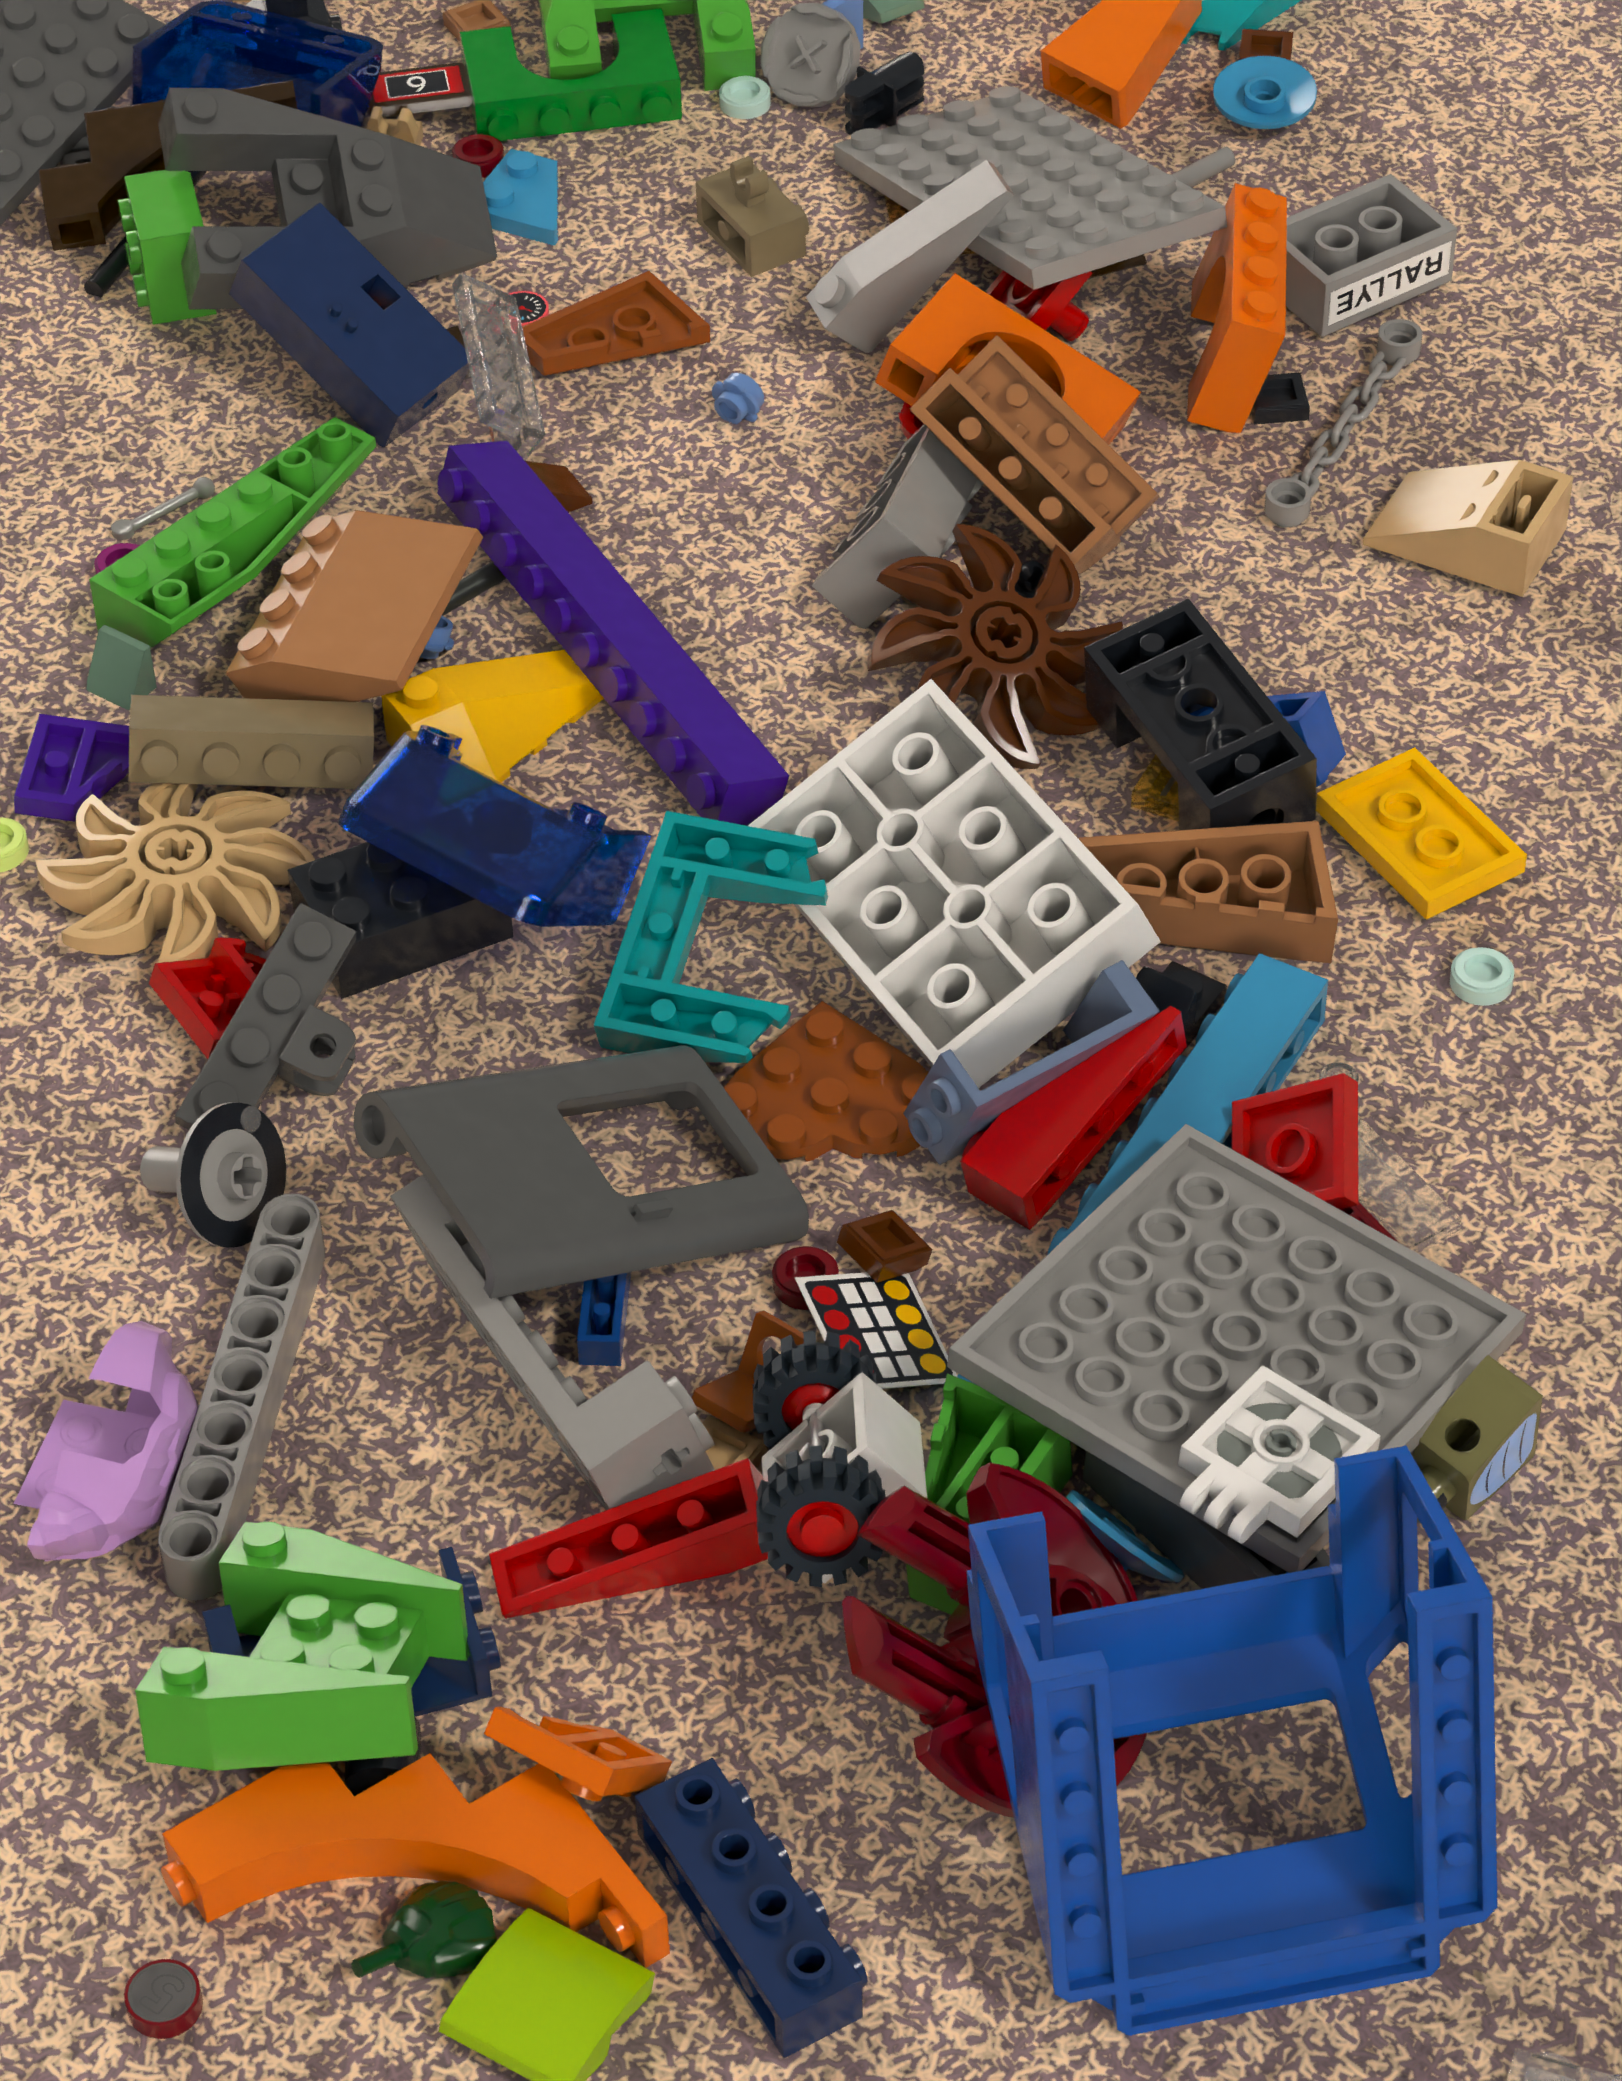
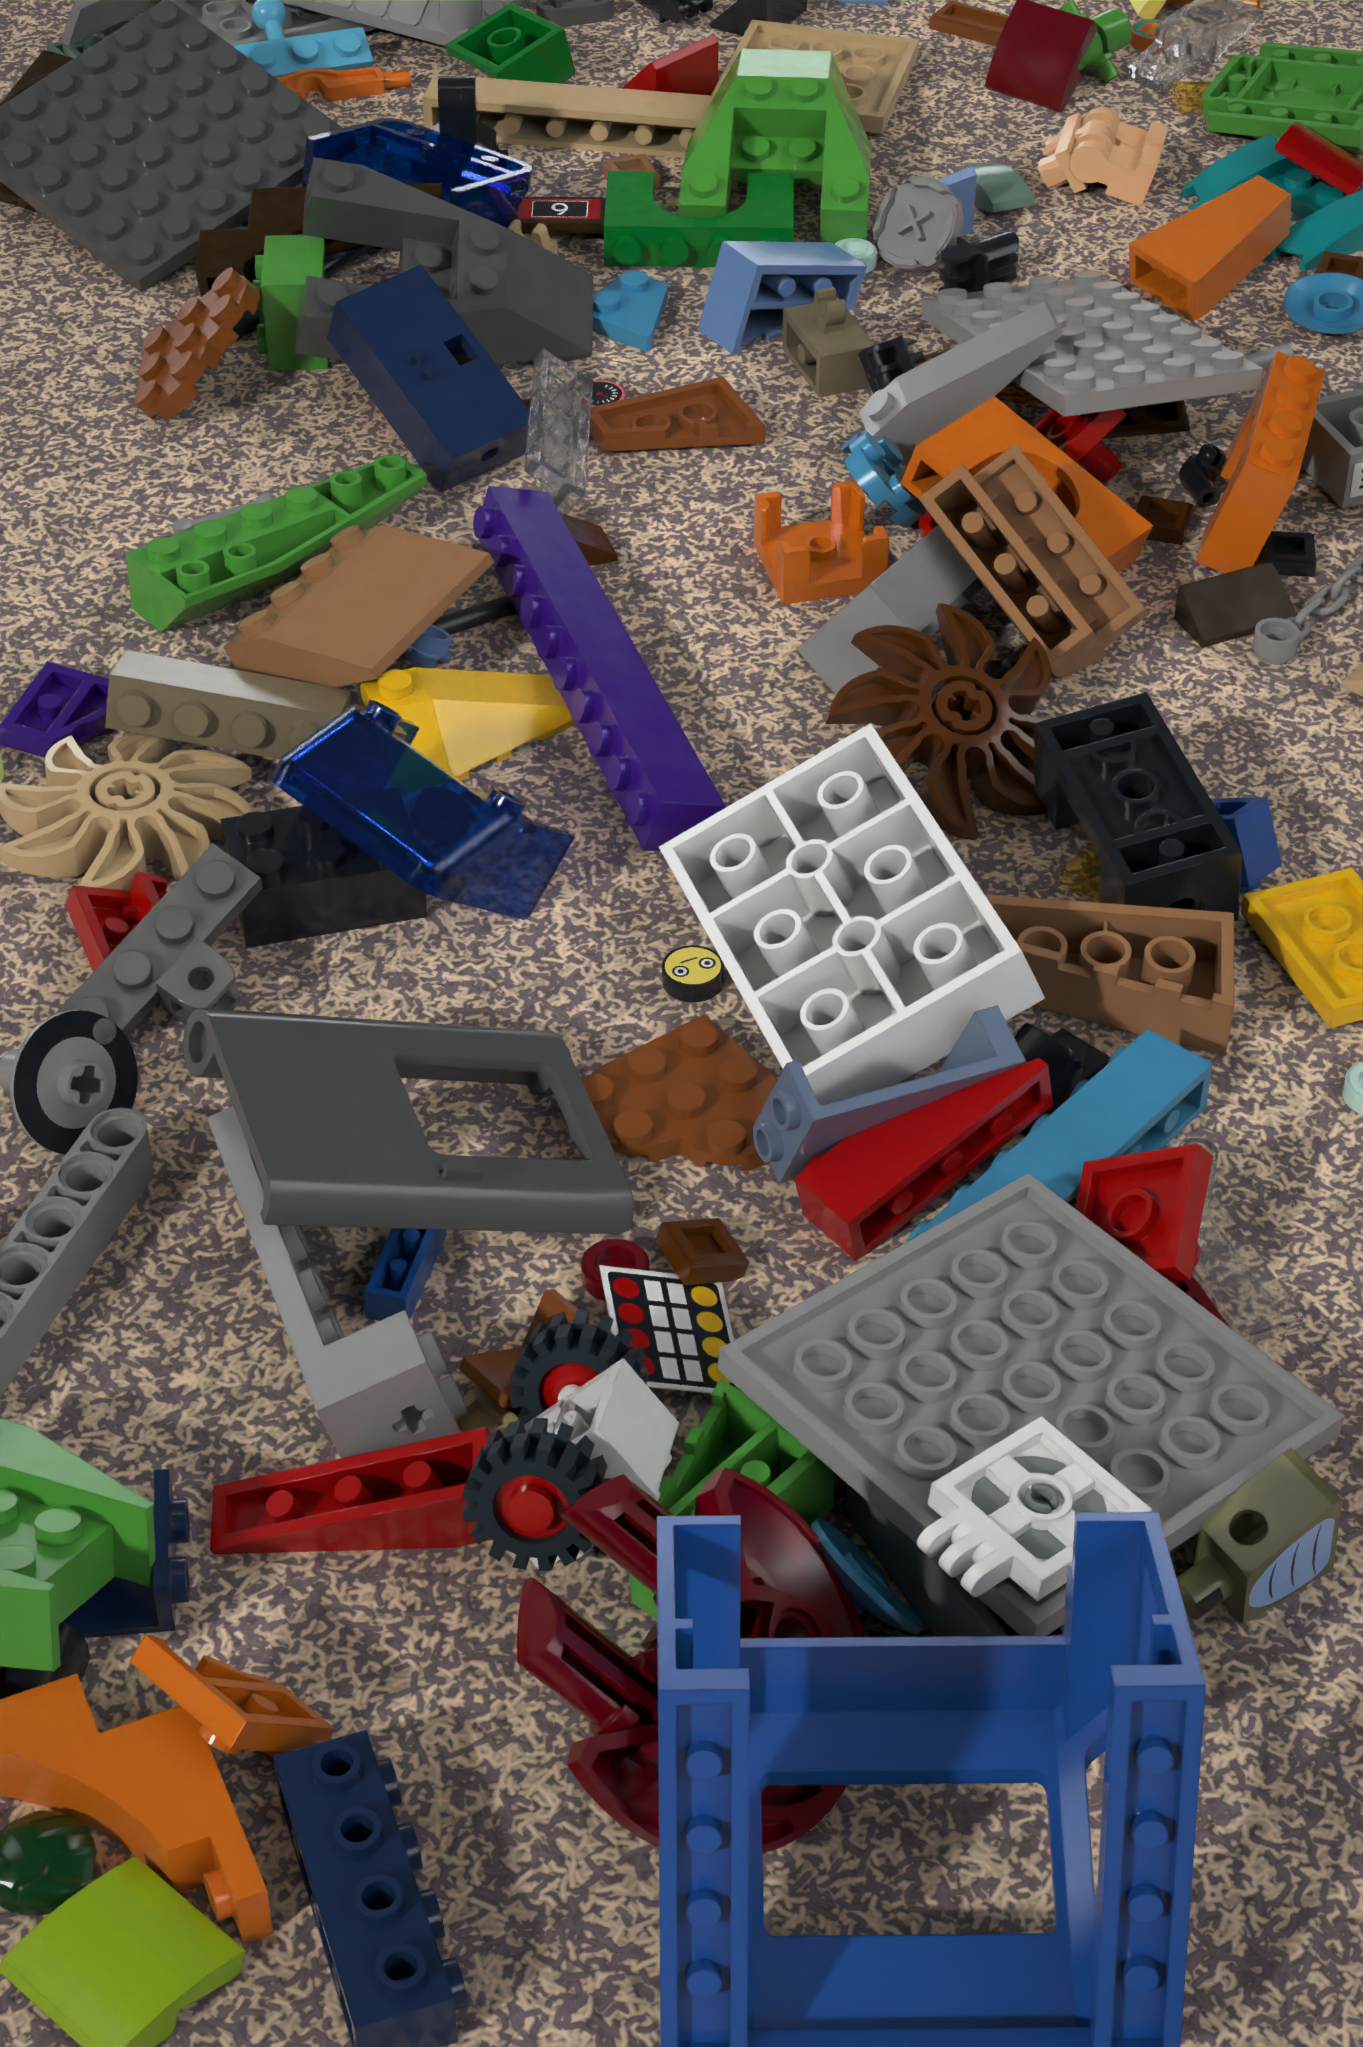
camera: 10 degrees right, 5 degrees down
(71, 313) = (191, 342): none -> dark orange plate
(120, 668) = (136, 629): sand green slope -> none
(479, 150) = (603, 268): dark red tile -> none
(670, 148) = (762, 278): none -> medium blue wedge
(689, 863) = (599, 866): teal wedge -> none
(737, 398) = (779, 480): medium blue plate -> none
(797, 958) = (692, 973): none -> tile
(806, 468) = (820, 556): none -> orange panel
(826, 236) = (889, 360): none -> black arm
(850, 372) = (878, 473): none -> dark azure plate
(1146, 373) = (1168, 518): none -> reddish brown tile
(1168, 318) = (1199, 474): none -> black arm
(1236, 467) = (1232, 604): none -> dark brown slope

